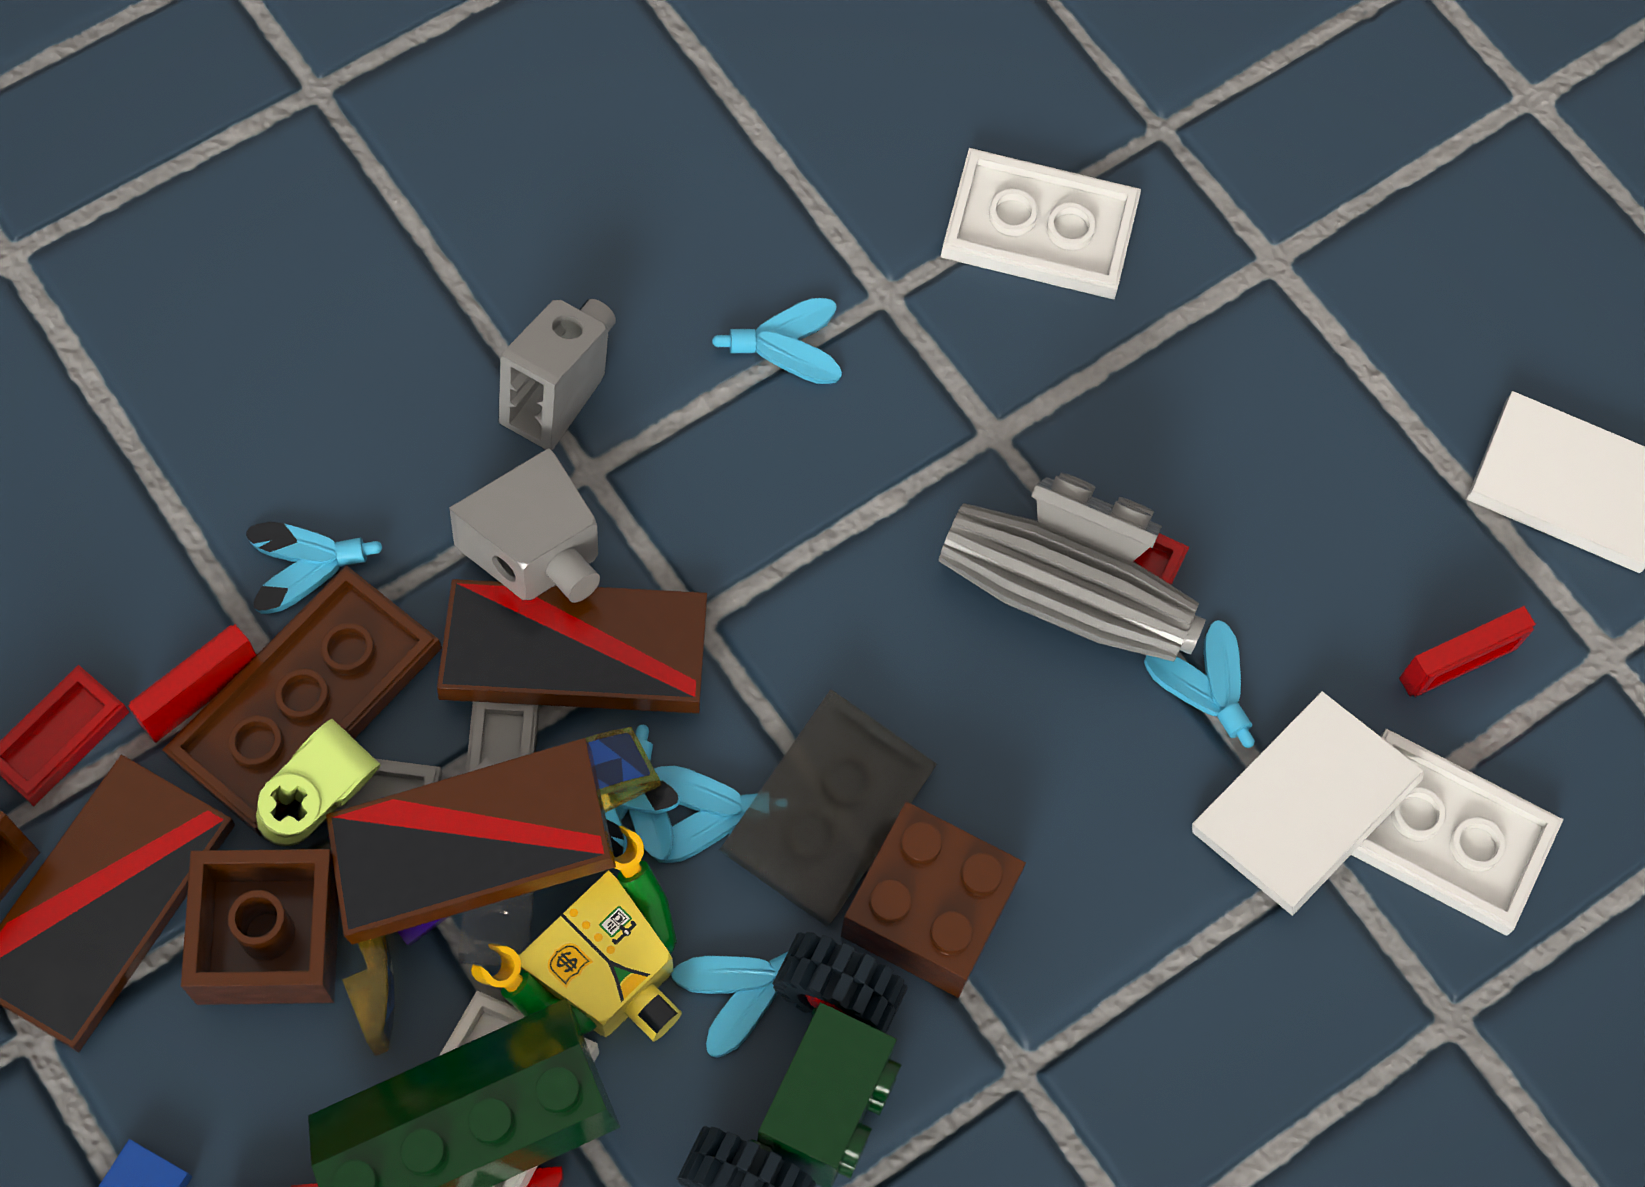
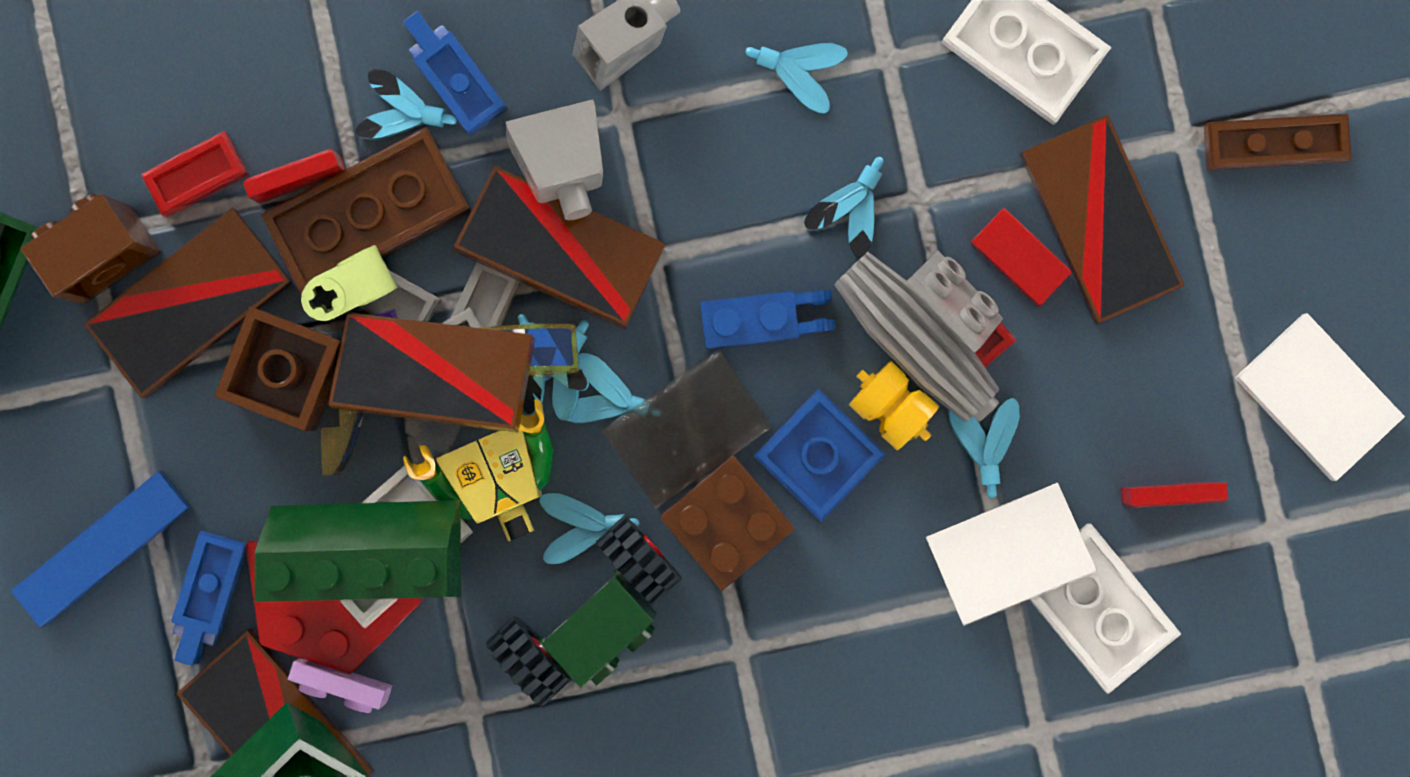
camera: 30 degrees right, 20 degrees up
(359, 491) = (454, 75): none -> blue hinge
(867, 639) = (761, 318): none -> blue hinge
(918, 460) = (857, 200): none -> medium azure piece
(1011, 778) = (819, 455): none -> blue tile
(1078, 674) = (900, 411): none -> yellow wheel
(1148, 453) = (1020, 257): none -> red tile
(1223, 378) = (1101, 219): none -> tile
(1378, 225) = (1277, 142): none -> reddish brown tile

